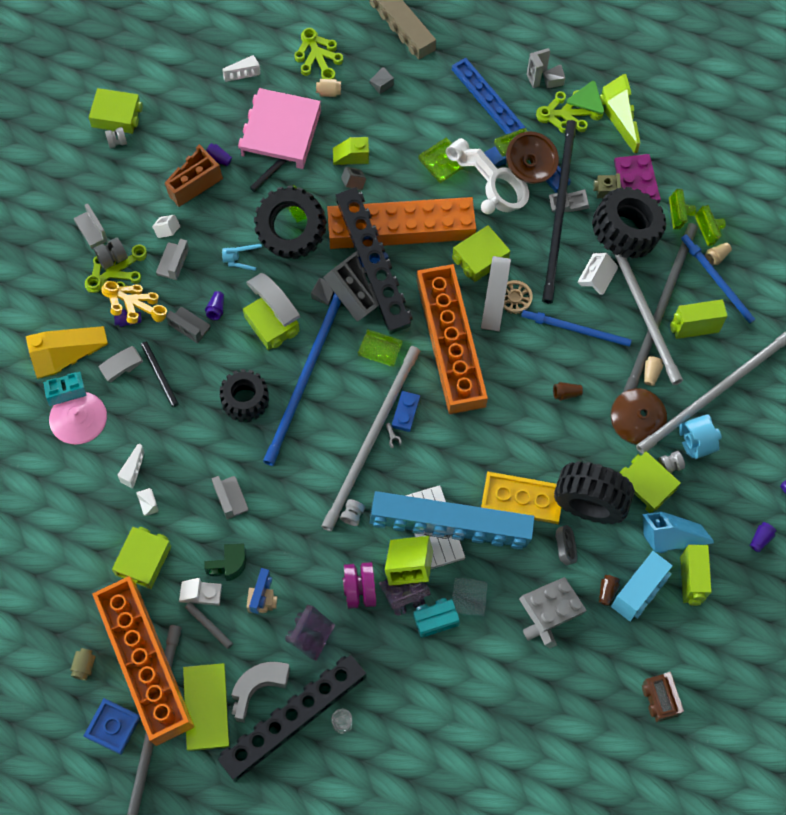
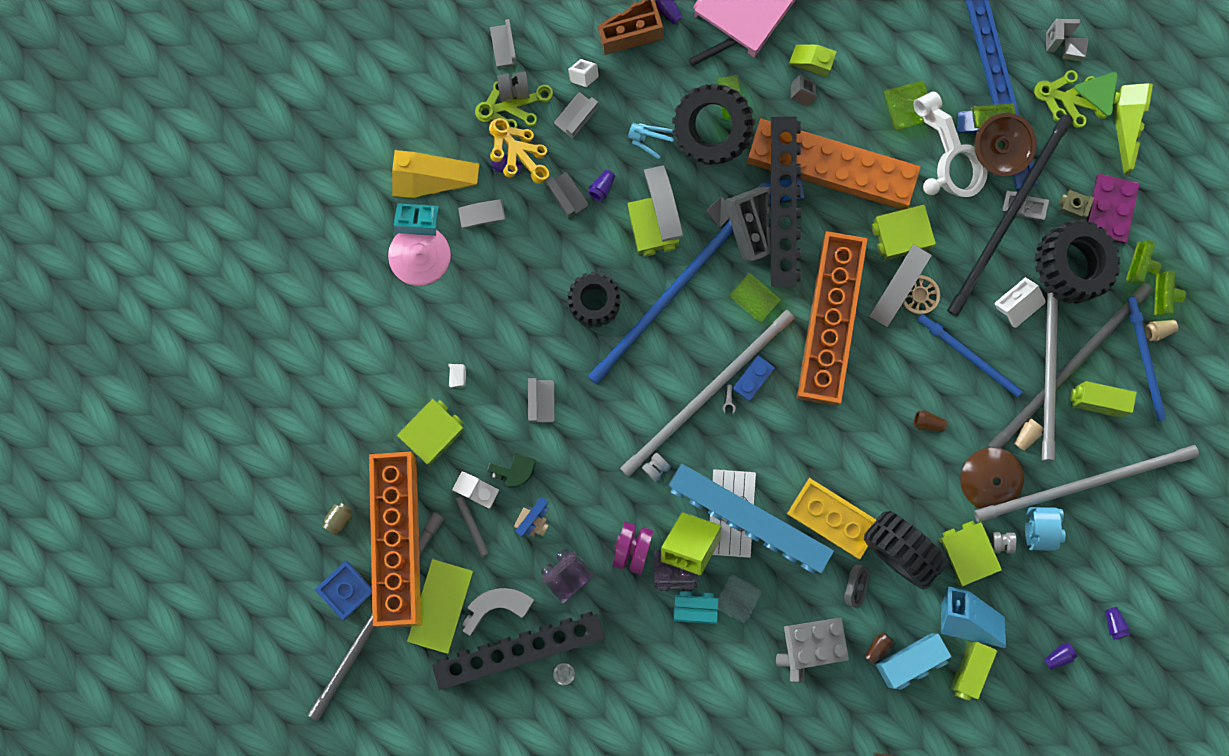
camera: 25 degrees right, 15 degrees up
(130, 470) = (454, 332): white slope -> none
(159, 374) = (517, 239): black bar -> none

